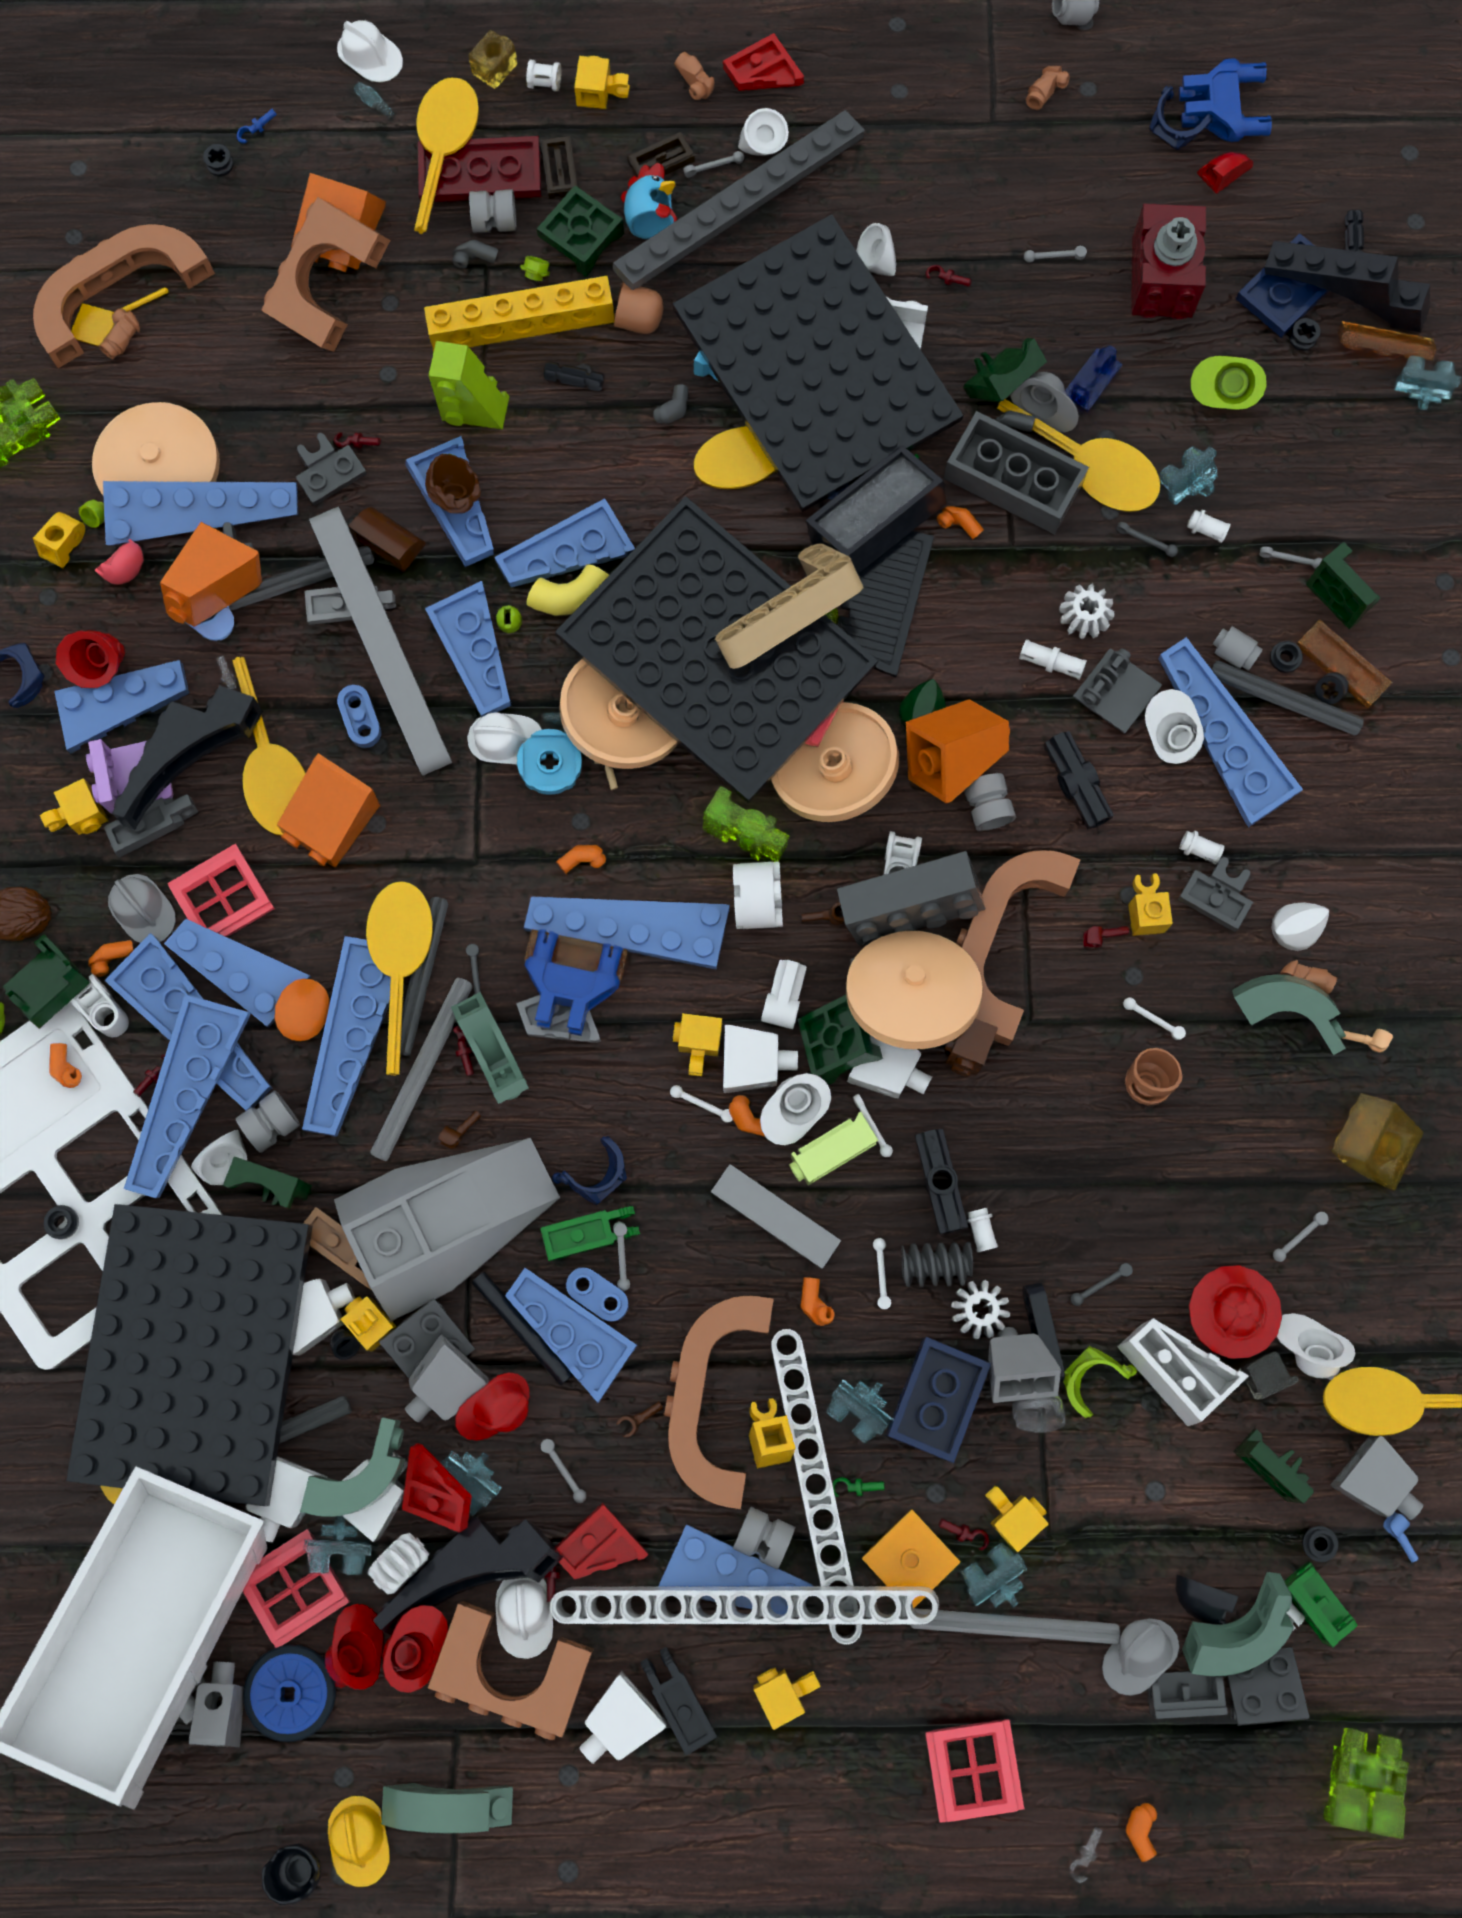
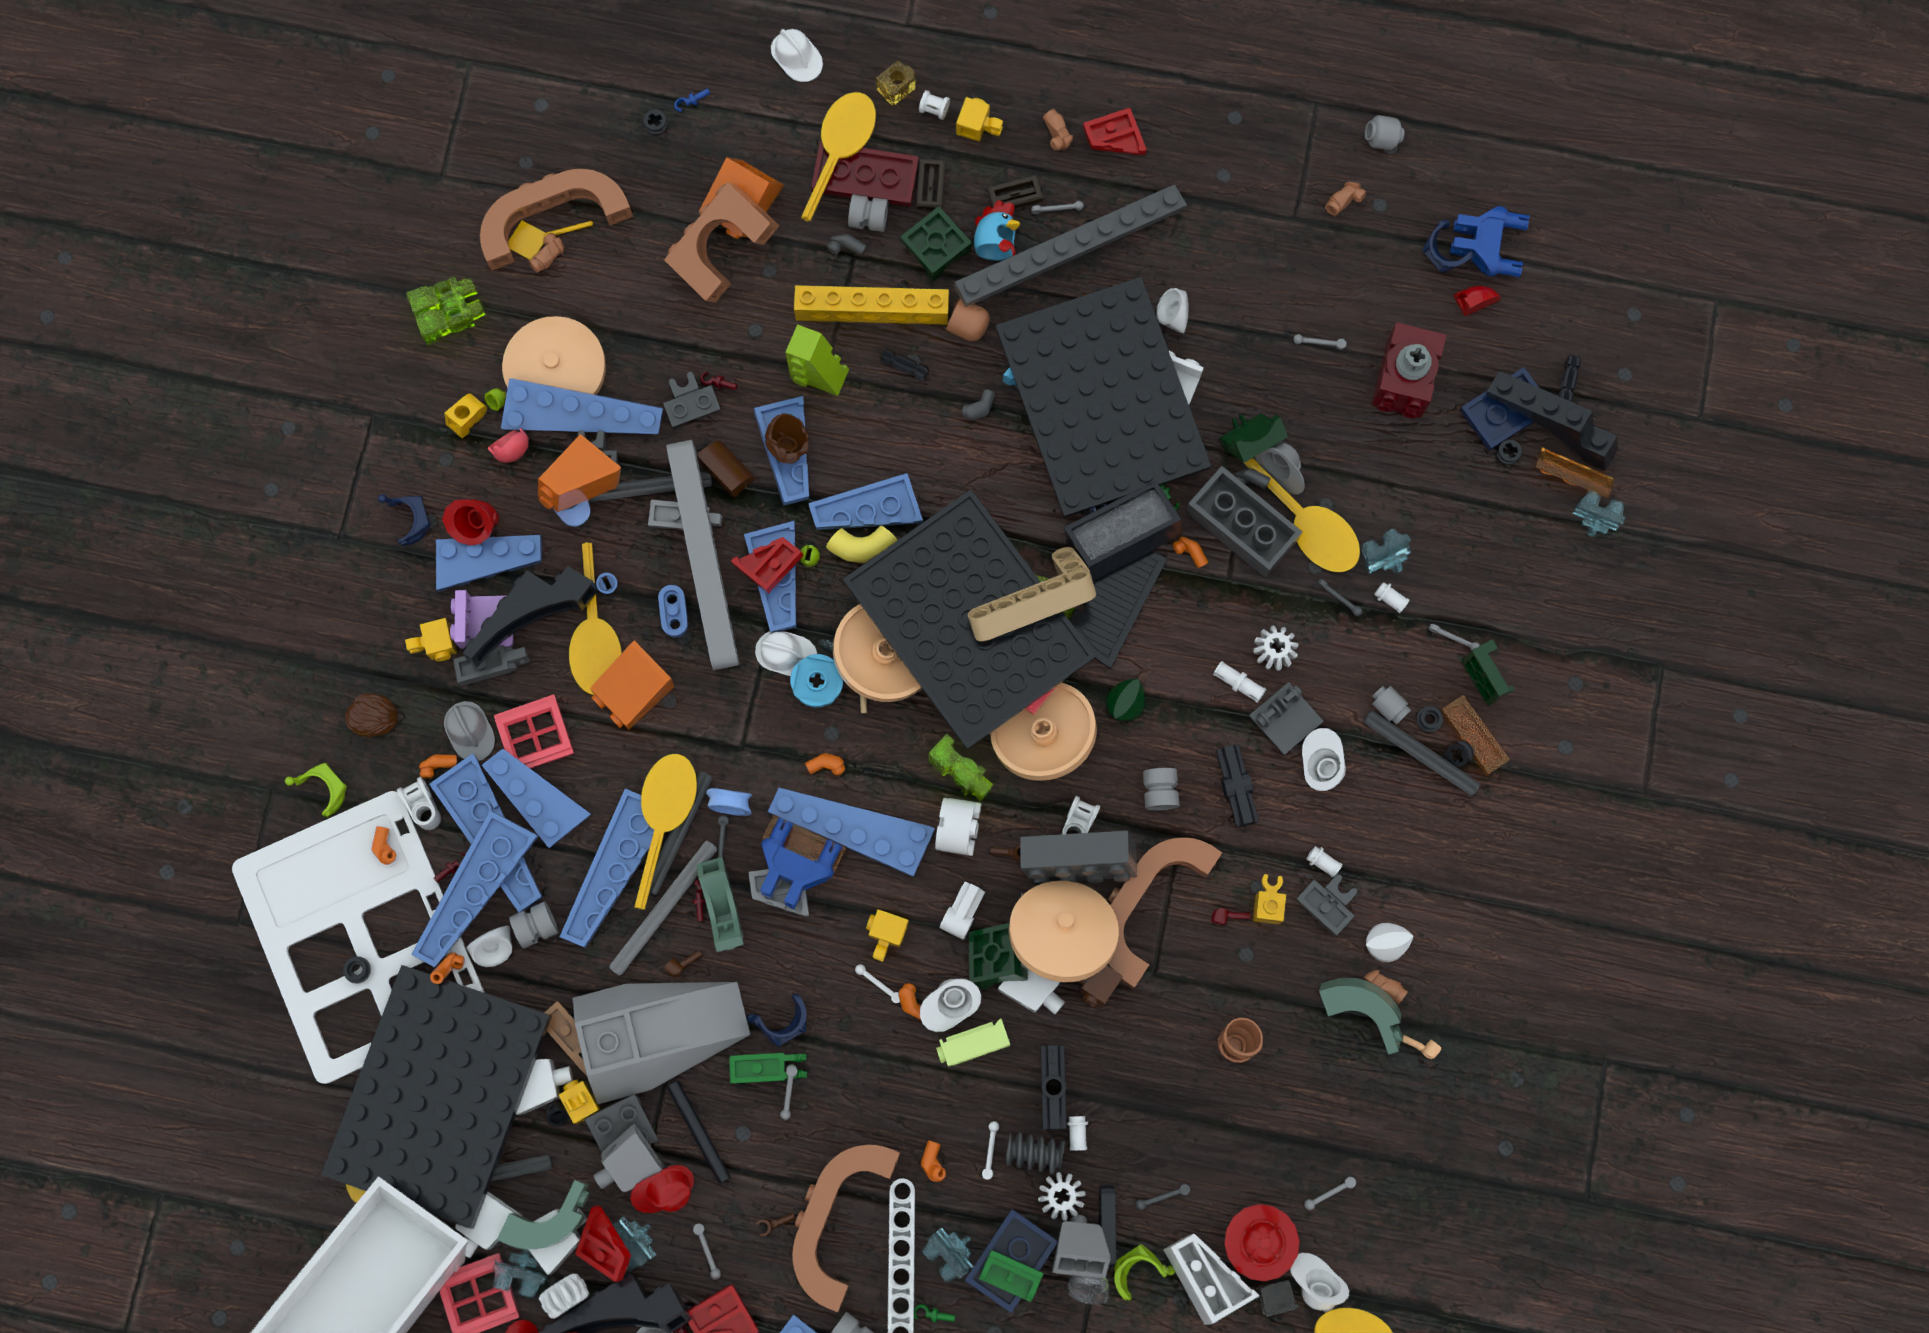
camera: 10 degrees right, 0 degrees up
(45, 983) = (382, 776): dark green piece -> none
(169, 1196) = (451, 961): none -> orange arm
(228, 678) = (575, 556): clear hand -> none
(276, 693) = (601, 584): none -> medium blue hinge
(282, 1185) = (535, 980): dark green piece -> none
(302, 1009) = (579, 841): orange hat -> none
(372, 99) = (791, 96): clear light blue piece -> none
(462, 634) = (769, 563): none -> red wing
(474, 925) = (729, 802): none -> light blue piece
(535, 268) = (893, 267): lime plate -> none
(576, 1336) = (739, 1147): medium blue wing -> none
(597, 1294) = (762, 1118): medium blue plate -> none
(732, 460) = (1016, 461): yellow piece -> none
(753, 1059) = (926, 957): white torso -> none
(763, 133) = (1103, 192): white piece -> none
(770, 1436) = (873, 1260): yellow brick -> none
(775, 1216) = (917, 1086): light grey tile -> none
(885, 1150) = (1015, 1052): white hinge -> none
(944, 1417) = (1011, 1275): none -> green hinge
(948, 276) = (1228, 343): dark red hand -> none
(954, 747) = (1142, 739): orange slope -> none
(1094, 377) = (1326, 453): clear blue hinge -> none
(1176, 1032) = (1269, 1007): white hinge -> none
(1228, 382) = (1434, 482): lime piece -> none
(1238, 750) = (1373, 792): medium blue wing -> none
(1377, 1140) = (1409, 1130): clear yellow slope -> none

